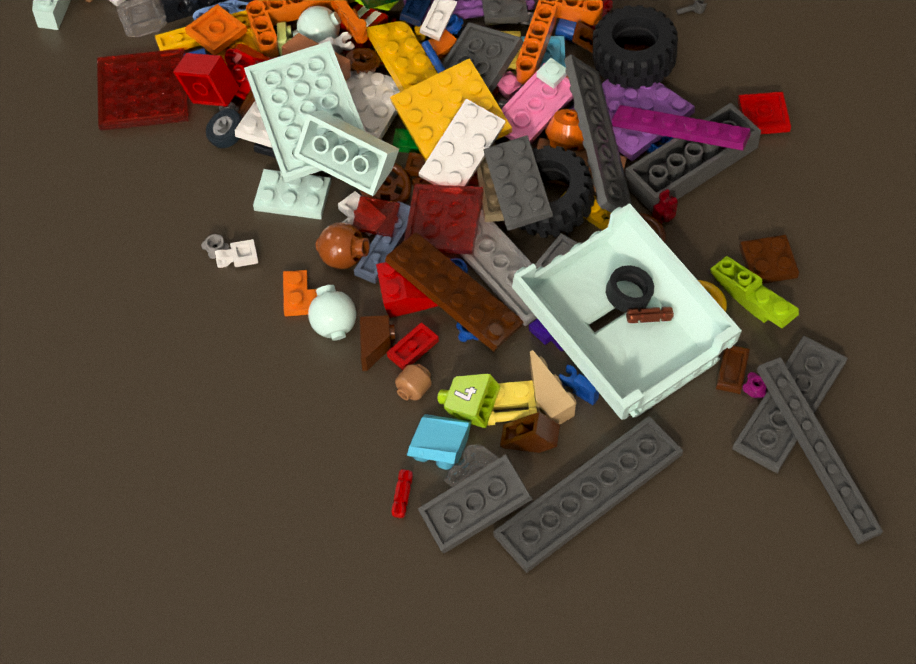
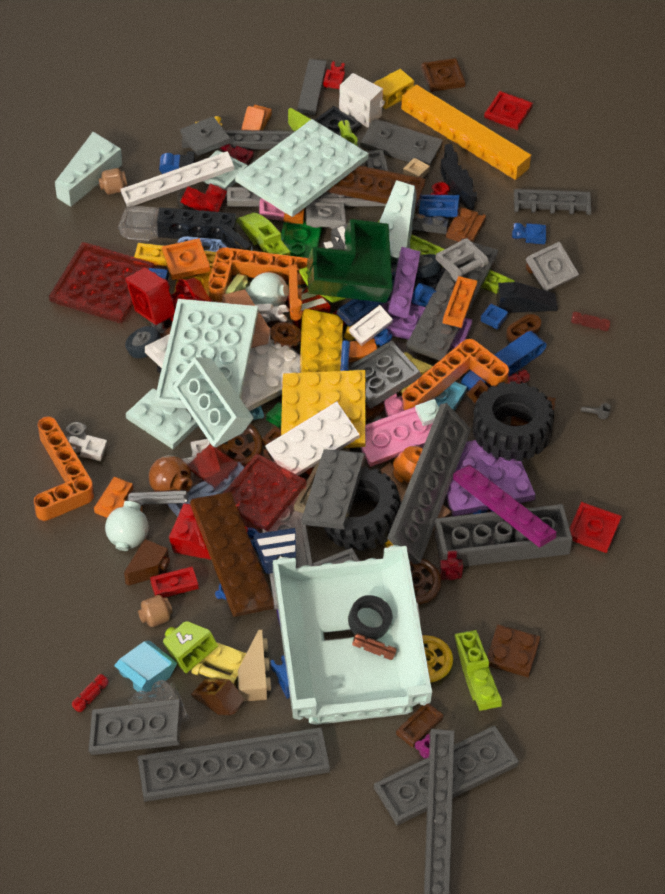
camera: 25 degrees right, 5 degrees down
(248, 298) = (77, 486): none -> orange beam
(344, 270) = (159, 497): none -> axle
(495, 267) = (275, 545): none -> dark blue torso

